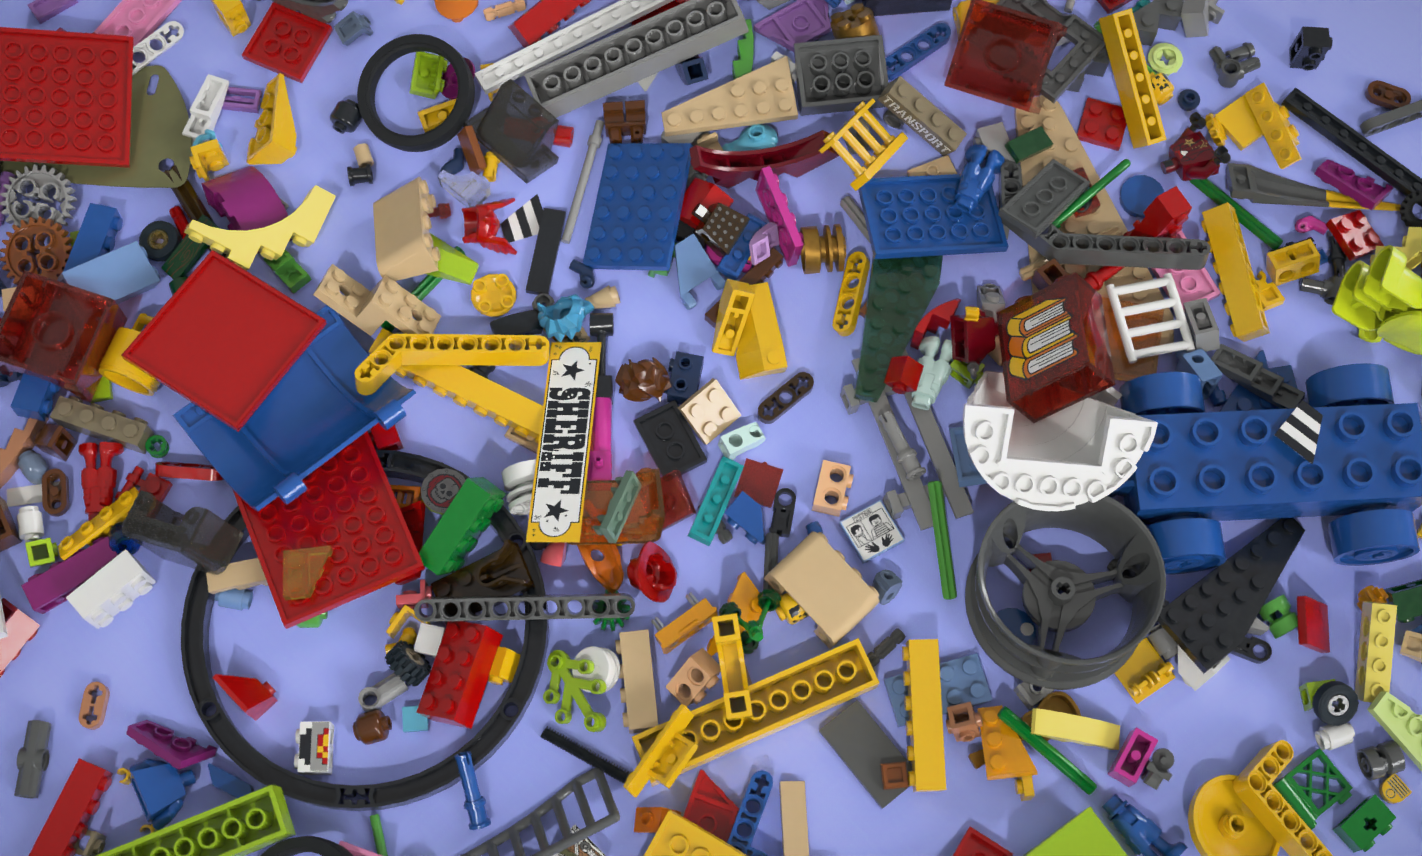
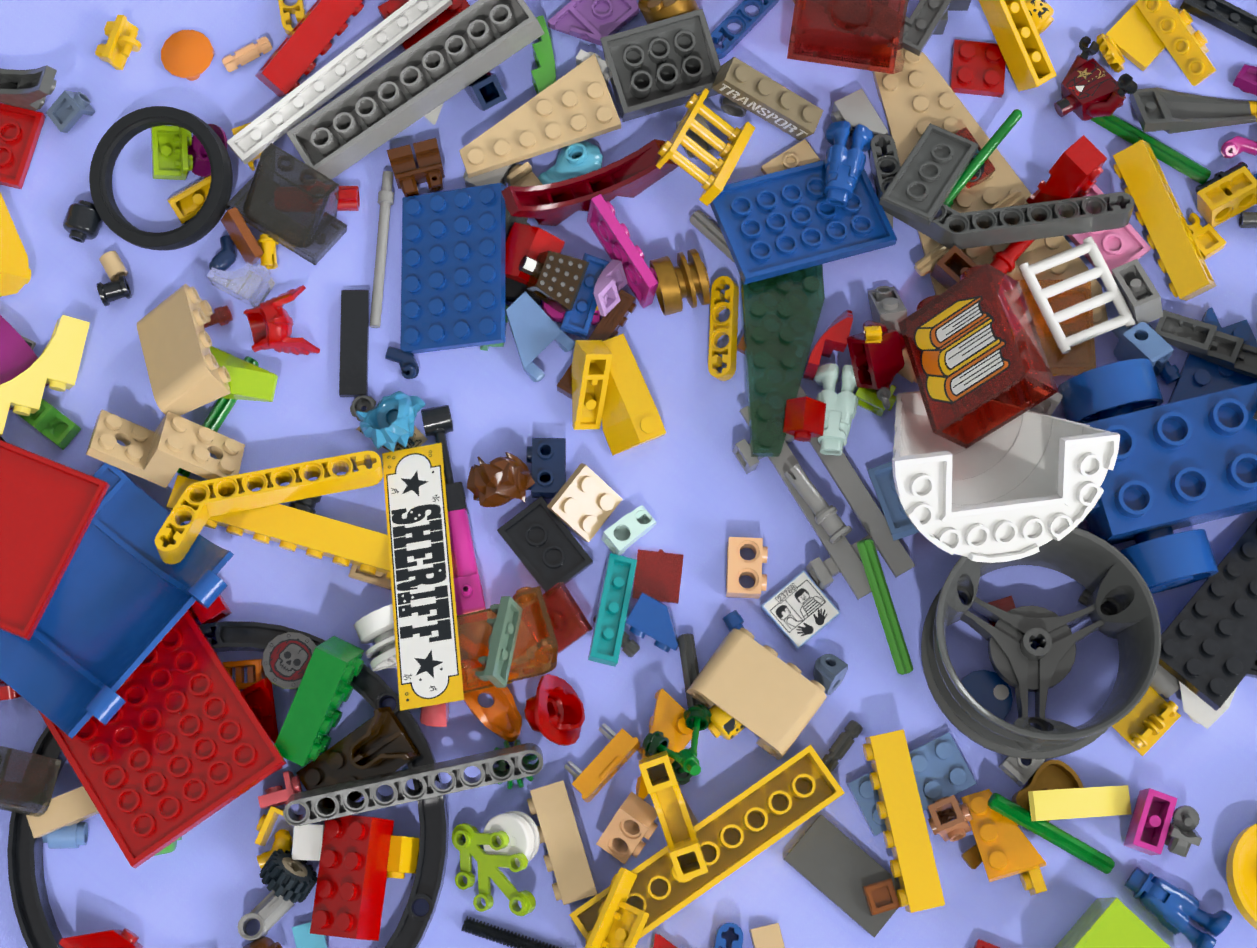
camera: 10 degrees left, 5 degrees up
(302, 570) = (140, 794): clear yellow wing -> none
(493, 295) = (302, 407): yellow dish -> none
(517, 324) = (337, 440): black slope -> none
(524, 221) = (321, 310): sticker -> none
(605, 298) = (434, 387): tan cone -> none
(783, 516) = (694, 609): black piece -> none
(802, 392) = (672, 479): dark brown beam -> none
(1028, 144) = (898, 111): dark green tile -> none
(1138, 194) = (1038, 147): blue tile -> none
(1186, 104) = (1072, 27): dark blue plate -> none

